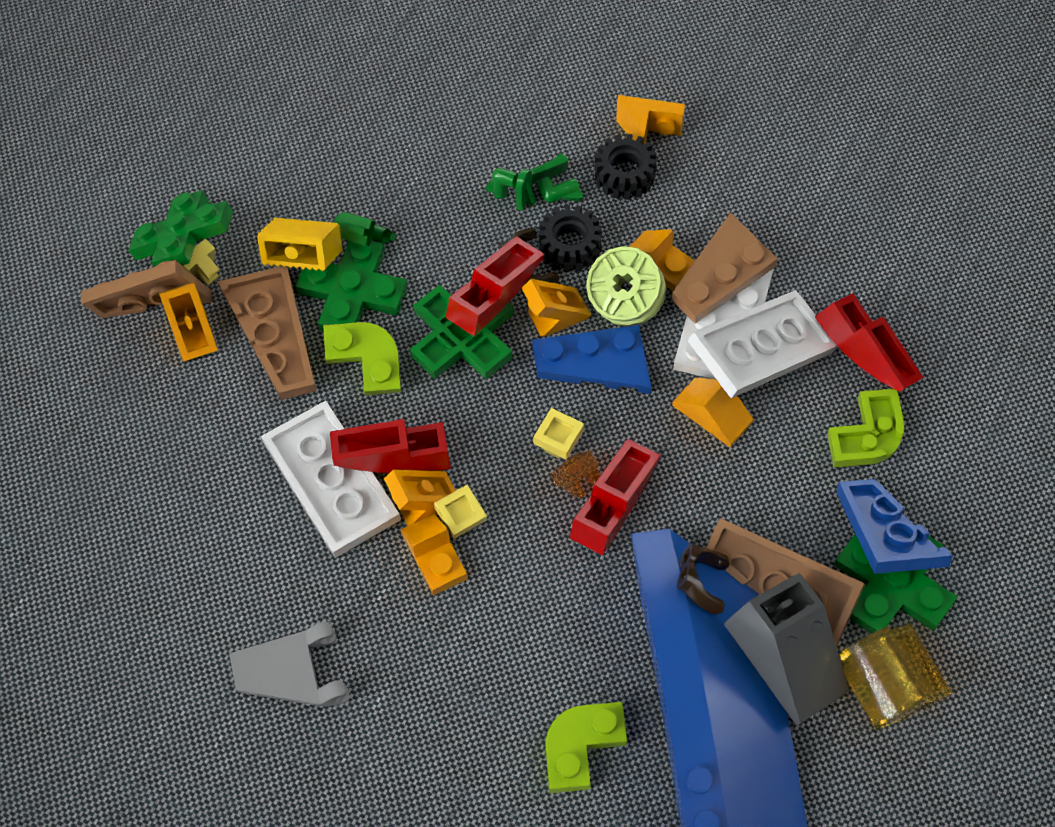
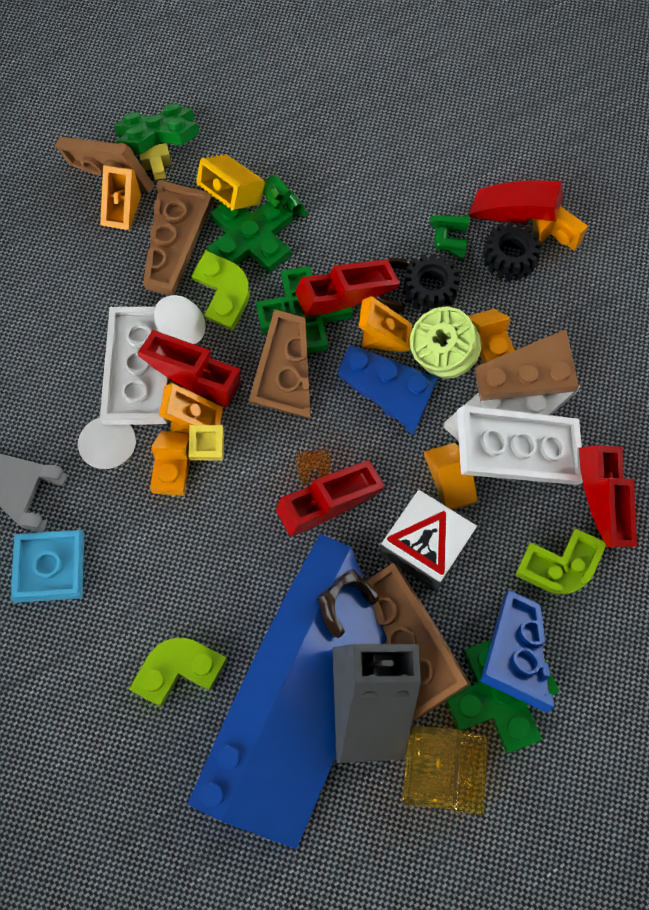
camera: 30 degrees right, 5 degrees up
(342, 408) = (179, 319): none -> white sticker
(351, 576) = (106, 444): none -> white sticker
(380, 726) = (48, 566): none -> medium azure tile
(484, 398) = (283, 367): none -> medium nougat wing
(523, 182) = (420, 221): green piece -> none
(558, 434) = (318, 426): light yellow tile -> none
(601, 115) = (518, 201): none -> red slope
(736, 480) = (428, 539): none -> piece

